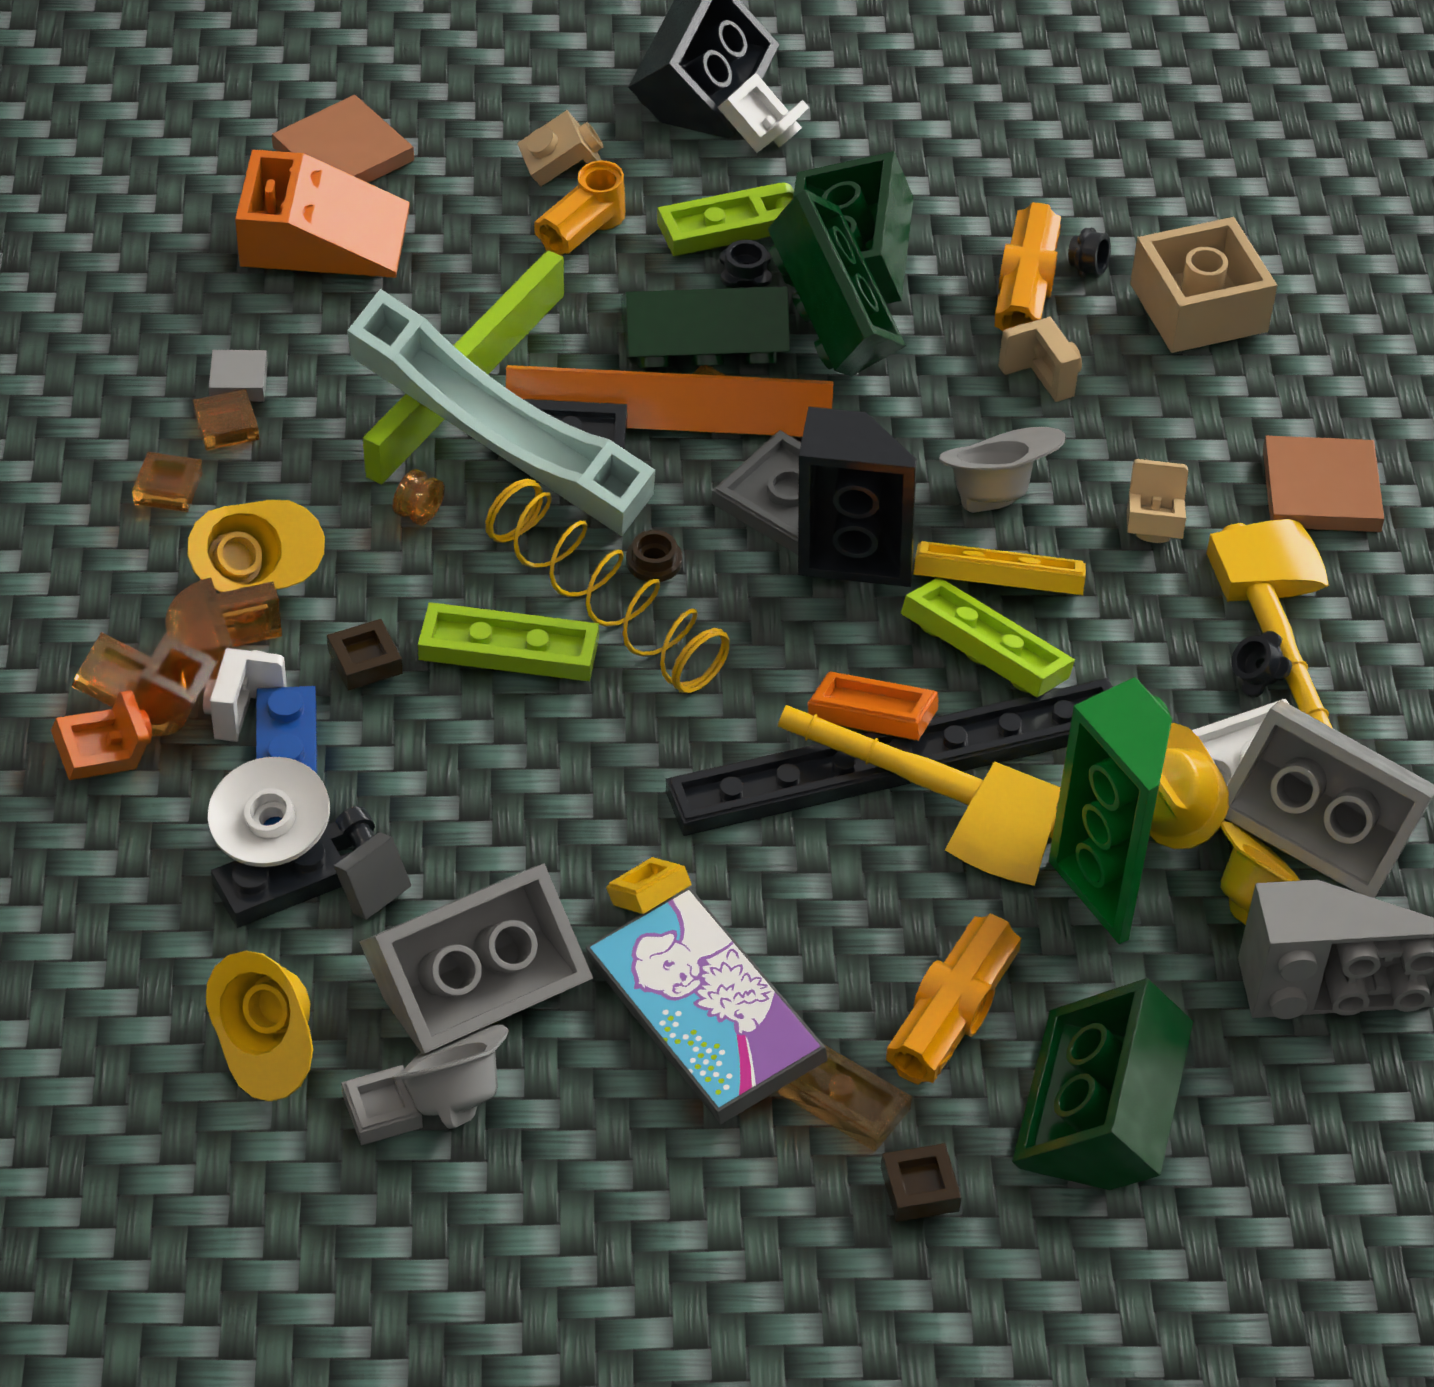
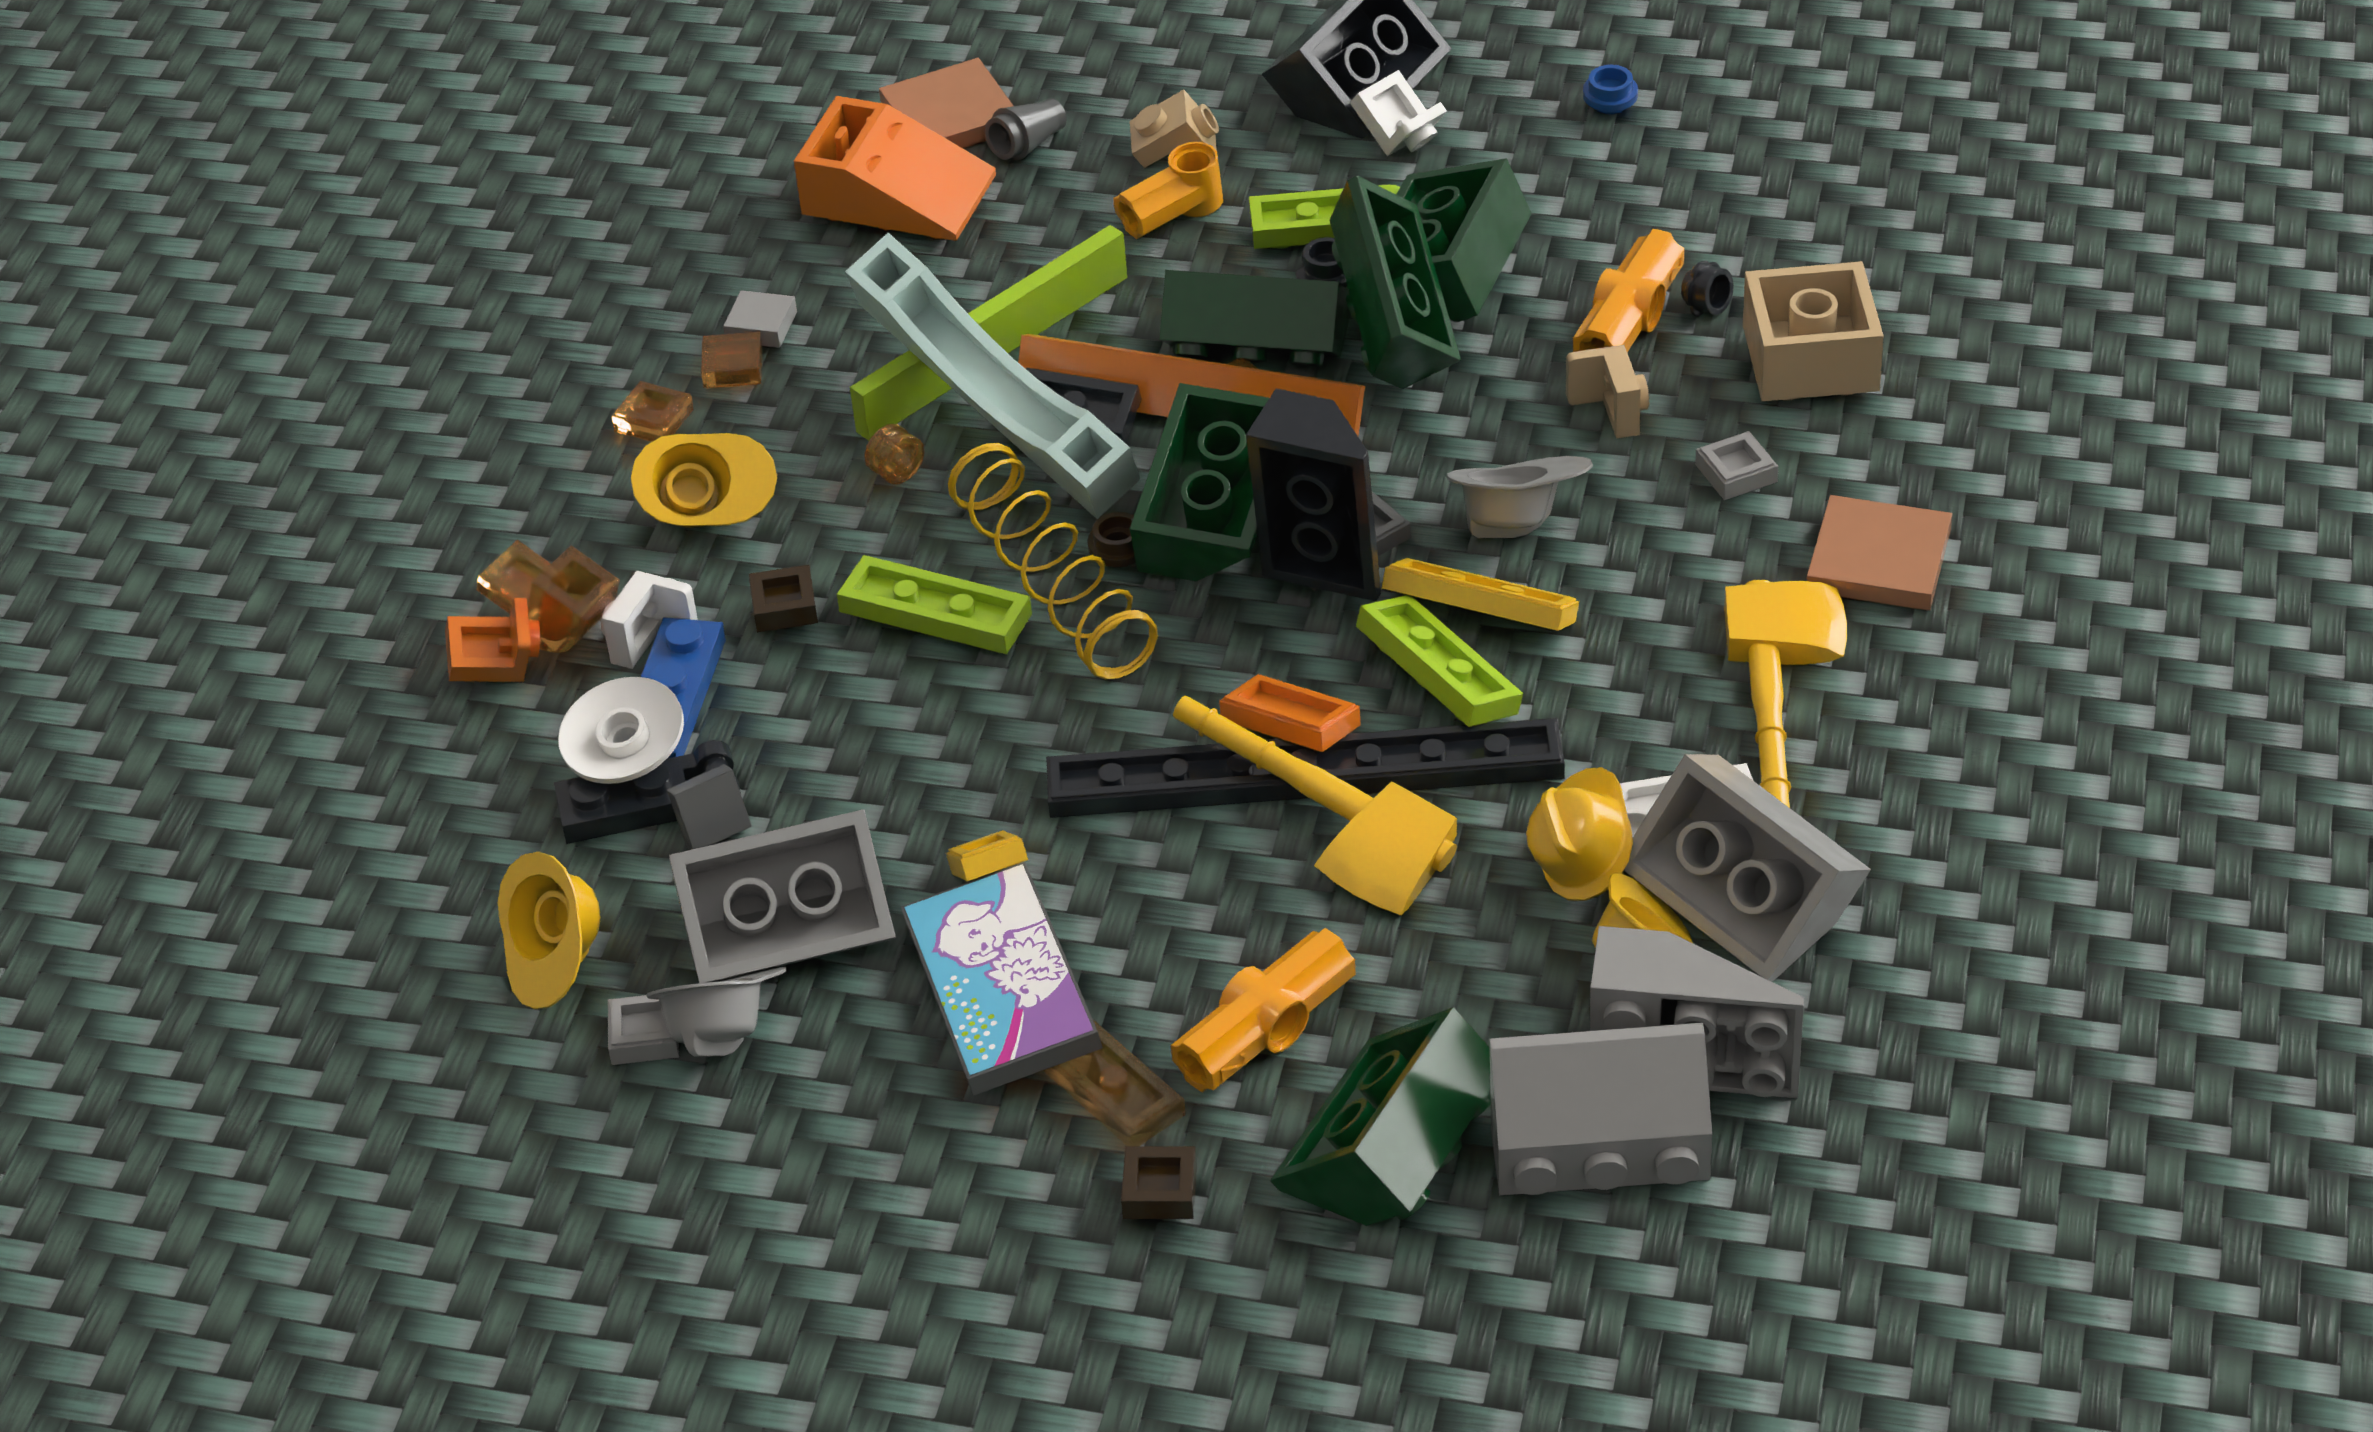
camera: 20 degrees right, 5 degrees down
(223, 619) = (658, 545): clear orange brick -> none
(419, 162) = (1022, 128): none -> dark grey cone
(739, 494) = (1199, 491): none -> dark green slope
(937, 70) = (1610, 89): none -> blue plate
(1110, 800) = (1477, 823): green slope -> none
(1157, 500) = (1680, 546): tan bracket -> none
(1171, 416) = (1736, 465): none -> light grey tile
(1249, 657) = (1730, 722): black plate -> none
(1293, 1053) = (1600, 1109): none -> light grey slope

